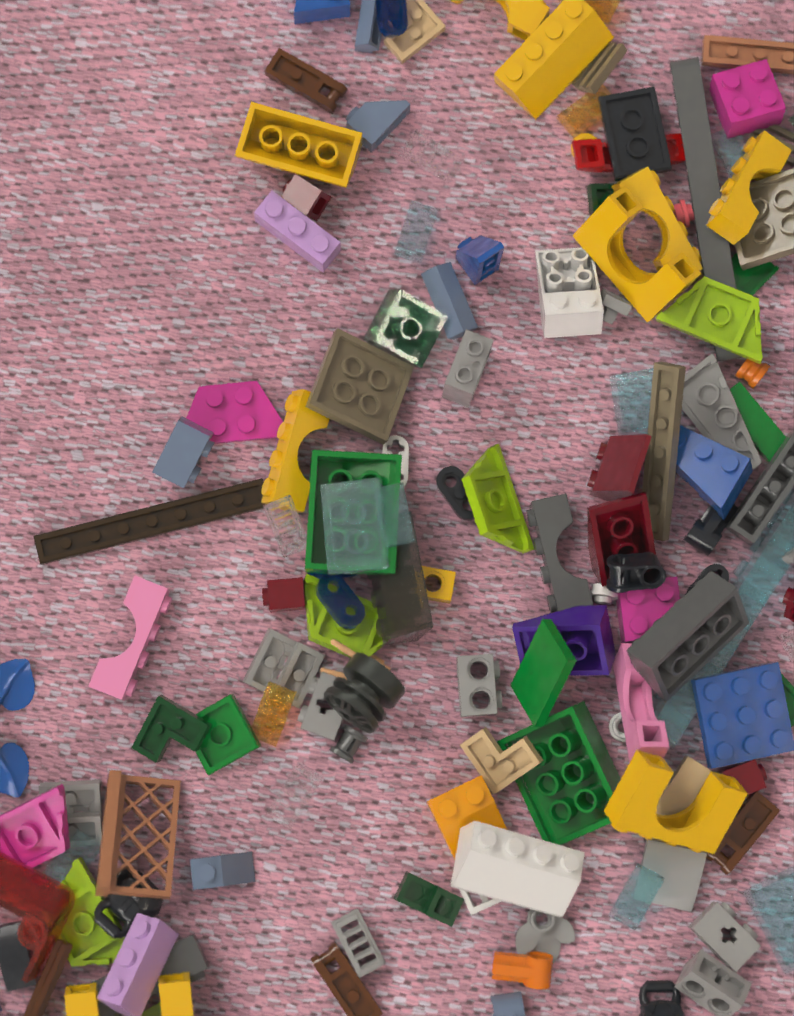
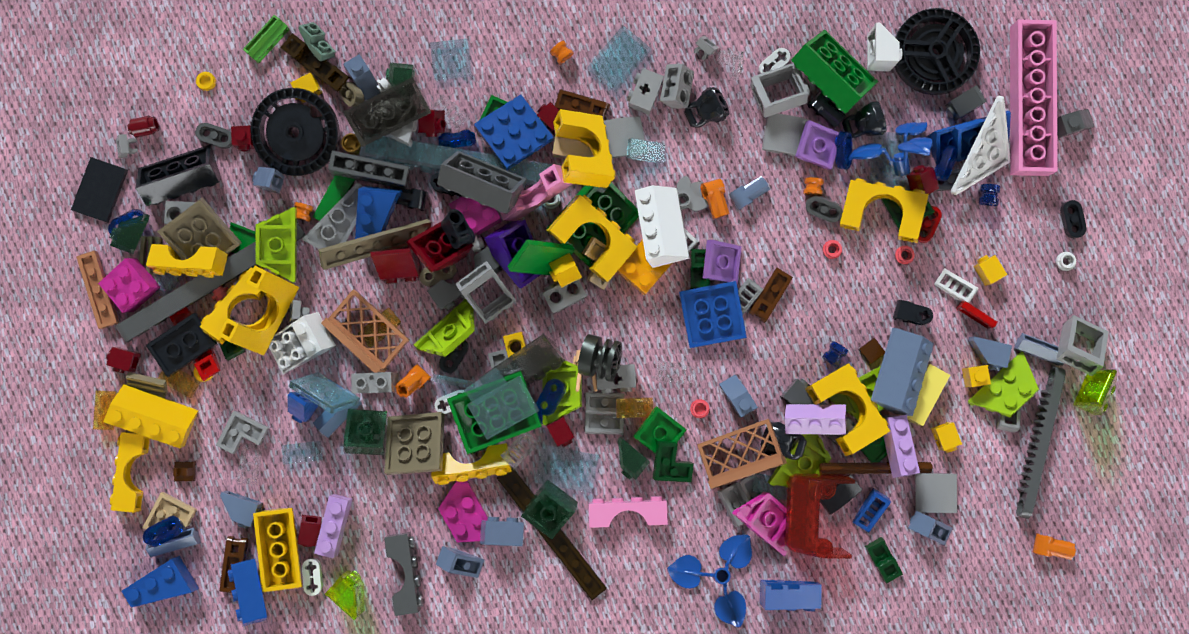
camera: 105 degrees left, 5 degrees up
(169, 378) = (459, 562): none -> sand blue slope
(185, 532) = (549, 509): none -> clear green slope
(196, 212) = (348, 594): none -> clear neon green slope
(201, 676) = (631, 460): none -> clear green slope
(225, 306) = (400, 549): none -> dark grey arch
(229, 807) = (699, 408): none -> coral plate
(230, 581) = (567, 468): none -> clear light blue tile
(243, 169) = (307, 577): none -> white beam
(259, 83) = (247, 592): none -> blue wedge
(348, 744) = (632, 355): dark grey bush -> none
(355, 887) = (712, 314): none -> blue plate
(424, 474) = (451, 381): none -> clear light blue tile
(425, 935) = (721, 261): none -> medium lavender plate
(428, 551) = (497, 357): none -> light grey tile
(447, 420) = (412, 381): none -> orange piece
(460, 68) = (184, 471): none -> reddish brown tile
(484, 294) = (324, 392): none -> clear light blue tile
(486, 165) = (240, 427): none -> light grey plate
(510, 699) = (564, 270): none -> yellow brick
(513, 791) = (617, 247): none -> yellow arch
(535, 362) = (352, 342): none -> nougat fence
(543, 407) = (382, 327): none -> clear yellow slope
(552, 569) = (477, 278): none -> light grey window
(580, 519) = (437, 276): none -> dark tan plate
(632, 399) = (351, 275): clear light blue tile -> none
(648, 49) = (122, 360): none -> dark red brick
(768, 621) = (455, 140): none -> clear blue plate

